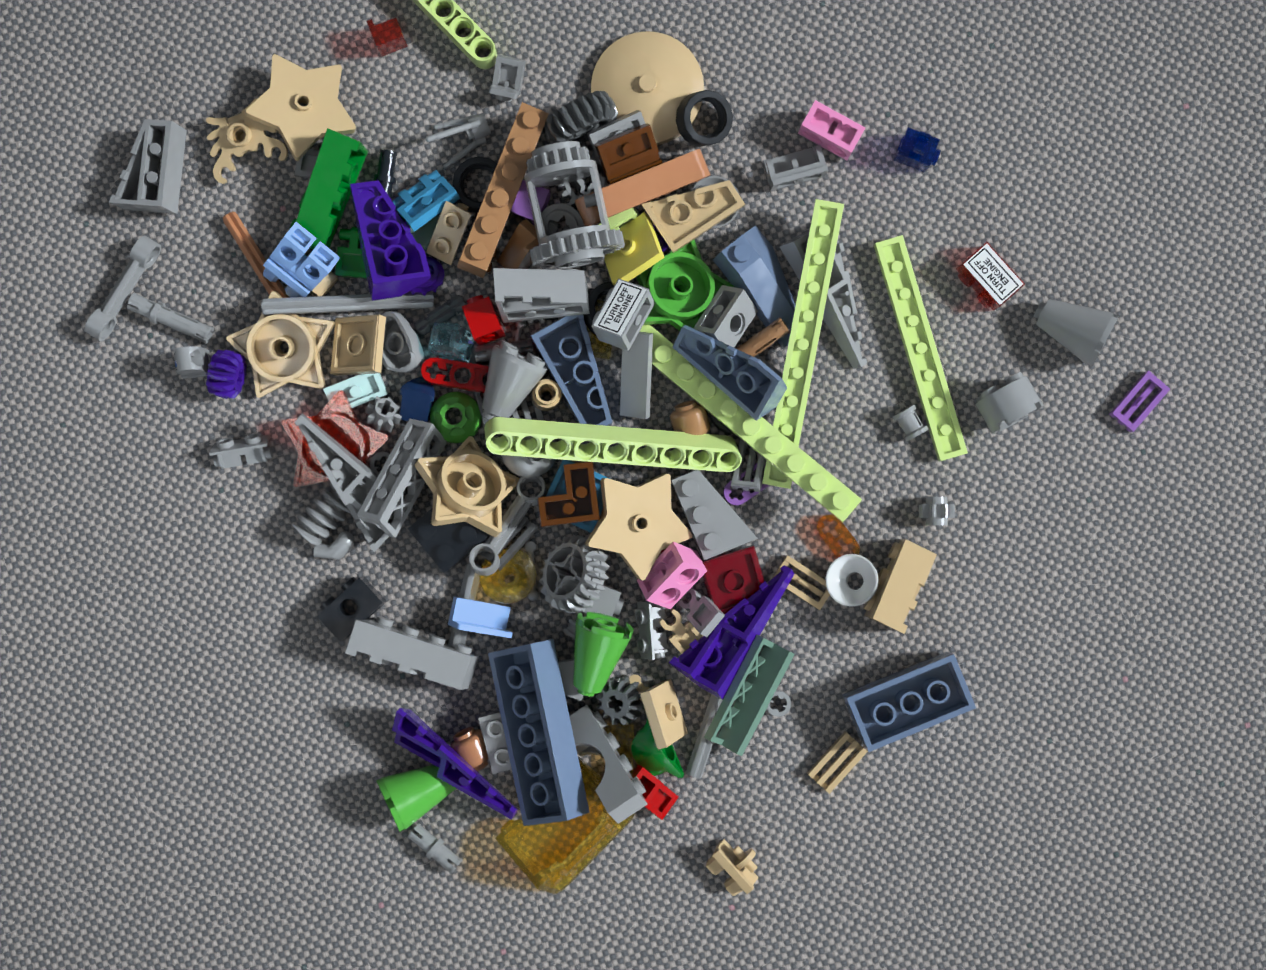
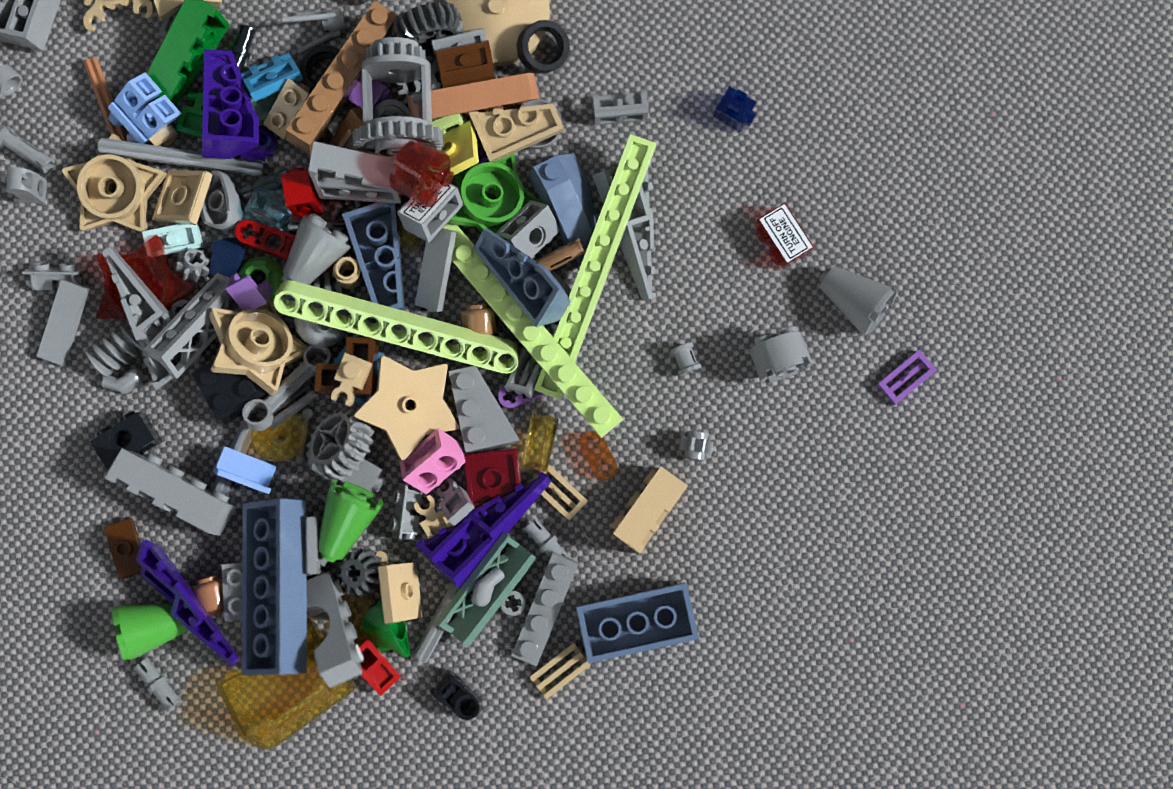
camera: 10 degrees right, 5 degrees down
(226, 374) = (54, 202): dark purple gear -> none
(260, 497) = (63, 322): none -> light grey tile
(372, 717) = (124, 547): none -> reddish brown plate
(449, 435) = (247, 292): none -> medium lavender panel
(568, 683) = (312, 554): none -> light grey tile
(578, 503) = (351, 374): none -> tan plate
(611, 281) = (421, 172): none -> clear red brick
(736, 864) = (443, 752): tan hips -> none
(737, 806) = (455, 695): none -> black piece
(749, 694) = (484, 587): none -> light grey arm
(775, 535) = (539, 442): none -> clear yellow tile
(802, 637) = (545, 541): none -> light grey pin
(812, 703) = (545, 609): none -> light grey plate
(831, 130) = (658, 77): bright pink brick -> none
(838, 576) = (592, 490): white piece -> none
(920, 348) = (707, 292): yellowish green plate -> none

